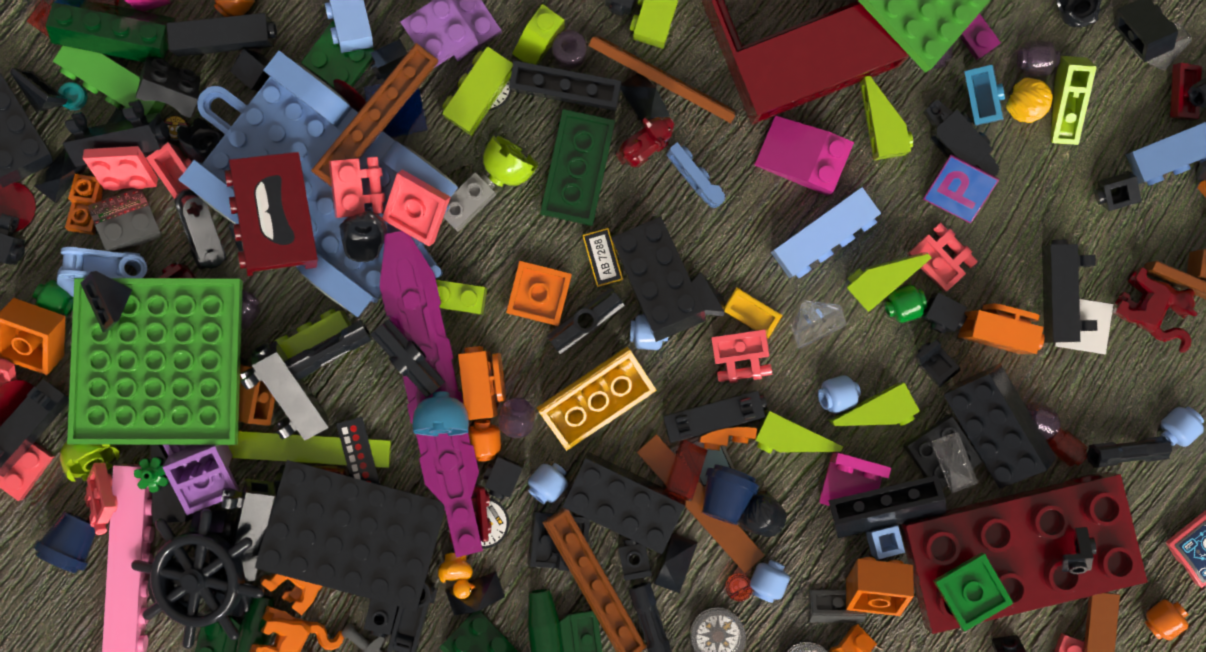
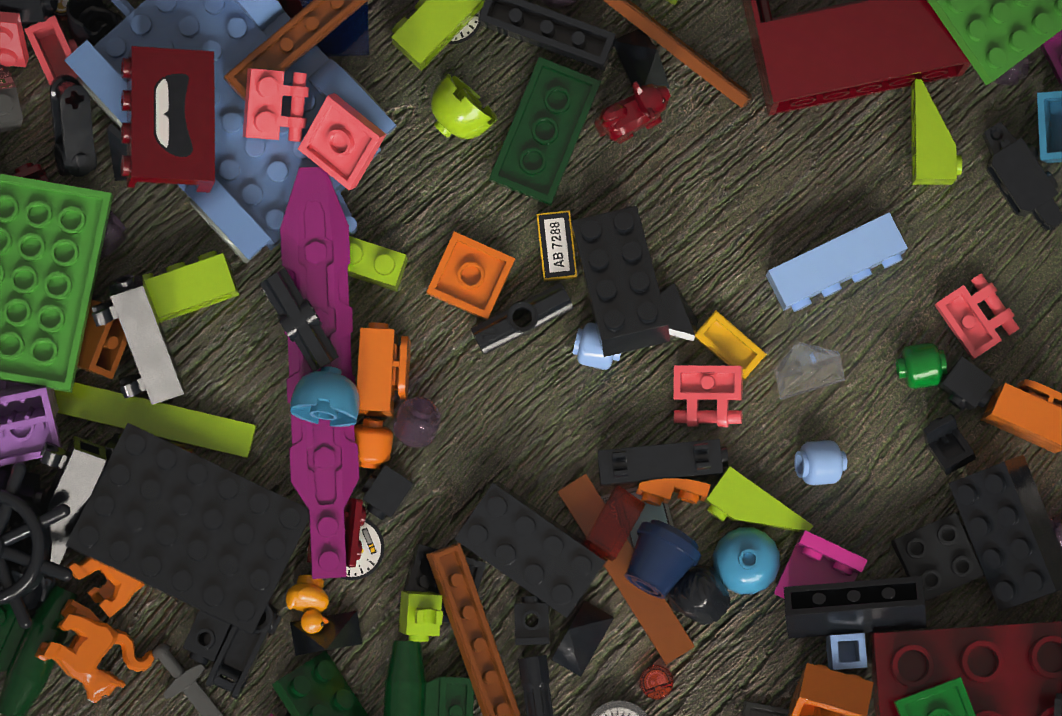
camera: 15 degrees right, 5 degrees down
(330, 349) = (201, 298): black axle -> none
(357, 450) = (213, 427): black sticker -> none
(363, 236) = (272, 164): black hair -> none
(469, 200) = (405, 148): light grey brick -> none
(546, 569) = (420, 615): none -> lime brick
(547, 483) = (440, 510): light blue head -> none
(596, 398) = (519, 414): yellow brick -> none
(695, 176) = (688, 166): medium blue hinge -> none
(769, 581) = (695, 678): light blue head -> none
(793, 480) = (746, 560): none -> dark azure cylinder
(804, 154) = (825, 162): dark pink slope -> none
(882, 279) = (891, 331): lime slope -> none
(885, 408) = (872, 490): lime slope -> none
(954, 462) = (948, 568): clear slope -> none
(961, 188) = (1012, 236): piece -> none

